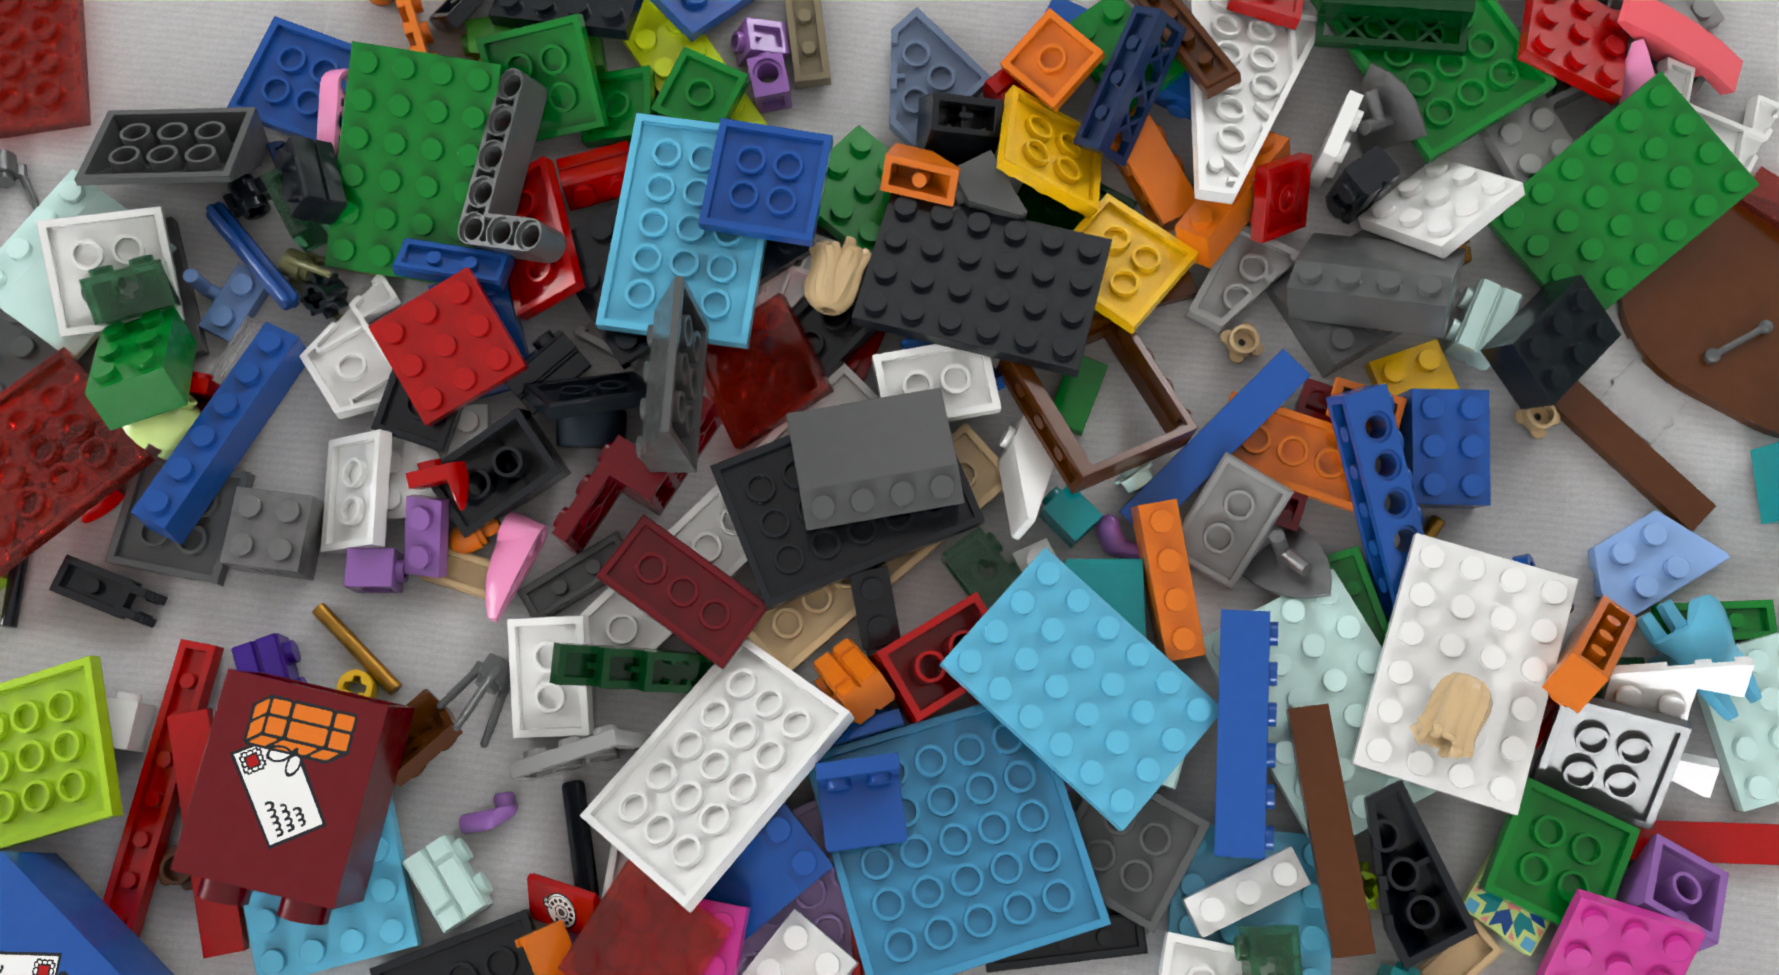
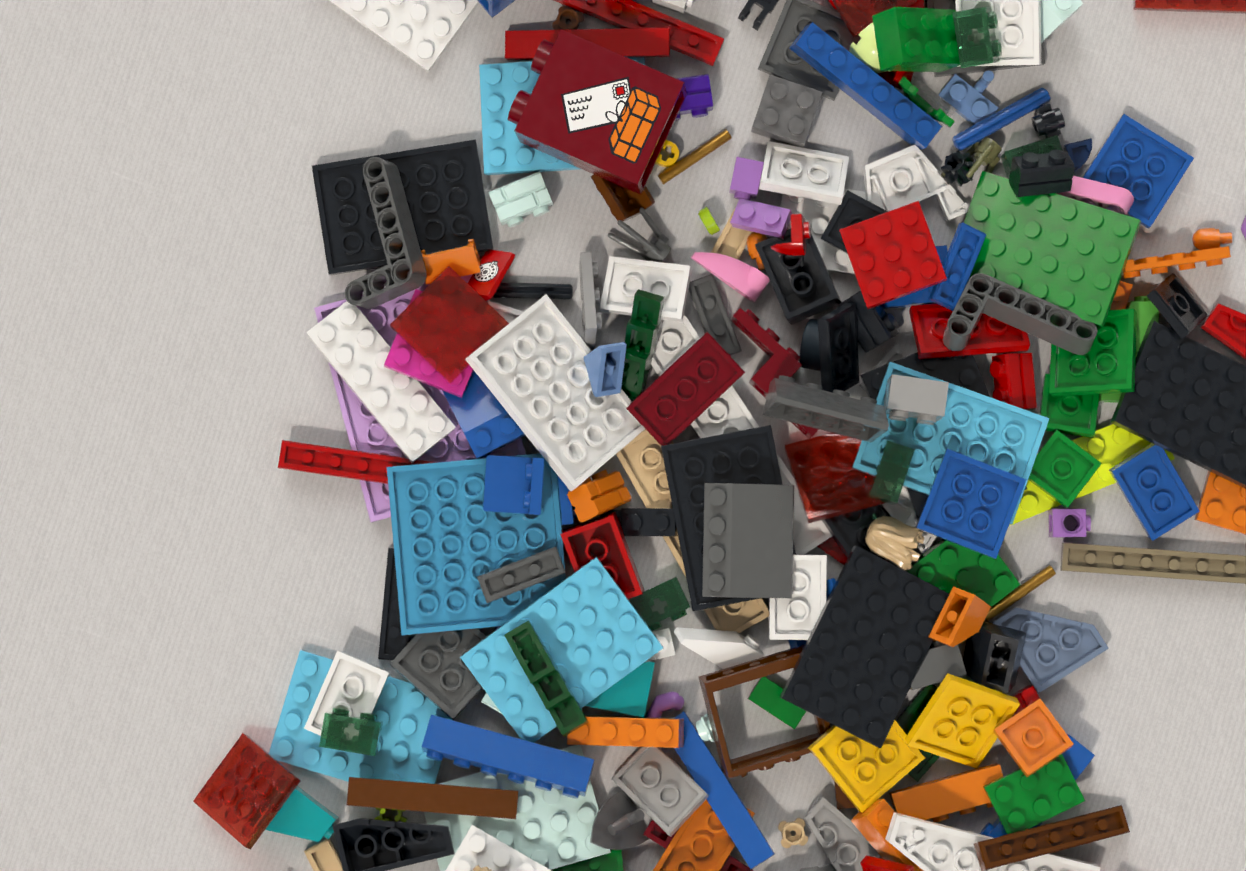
camera: 105 degrees right, 10 degrees up
(174, 146) = (1088, 75): dark grey slope -> none
(216, 367) = (910, 92): none -> green helmet
(443, 609) = (708, 221): none -> lime tile
(488, 819) = (558, 232): medium lavender arm -> none
(635, 268) = (915, 399): none -> light grey brick
(670, 706) = (606, 368): none -> medium blue slope
(744, 287) = (890, 472): none -> clear green brick
(759, 36) = (1104, 522): medium lavender bracket -> none
(856, 115) = (1020, 592): none -> pearl gold bar
(986, 768) = (521, 574): none -> dark grey tile
(1069, 514) = (686, 674): teal brick -> none
(1125, 699) = (546, 678): none -> dark green slope
(1126, 80) = (1001, 786): dark blue fence -> none
(1245, 891) = (403, 733): white plate -> none

